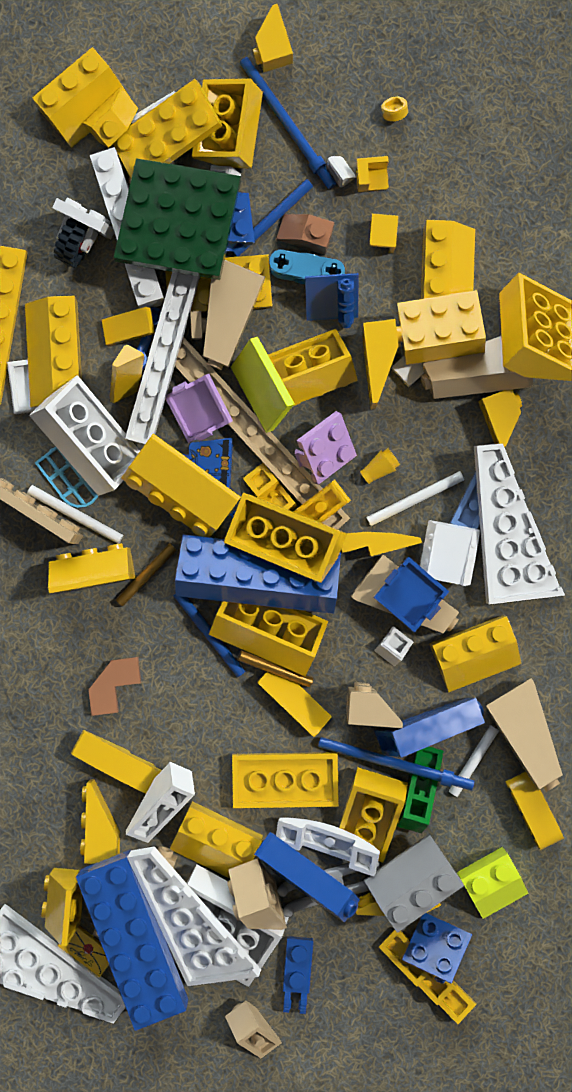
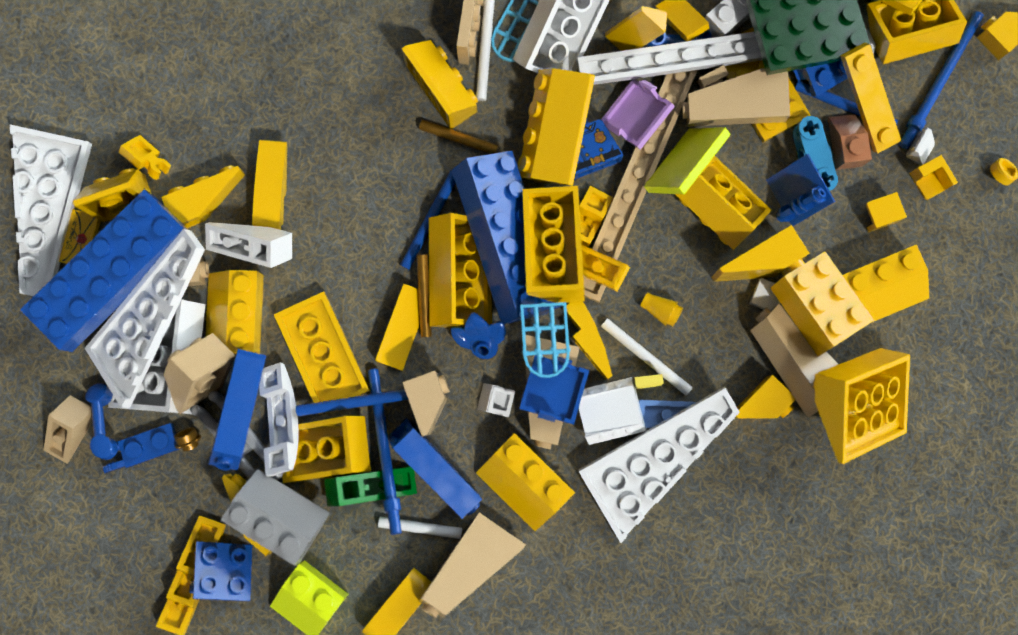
camera: 60 degrees right, 5 degrees down
(36, 862) = (143, 154): none -> yellow plate
(103, 691) = (332, 146): nougat tile -> none
(278, 196) = (870, 97): none -> yellow plate
(281, 1007) = (100, 444): none -> blue bar
(308, 929) = (187, 439): none -> pearl gold plate
(325, 448) = (655, 247): lavender piece -> none
(334, 636) = (478, 334): none -> blue plate
(341, 774) = (351, 402): none -> blue bar
(380, 581) = (551, 326): none -> medium azure window
(438, 508) = (648, 381): none -> light yellow tile

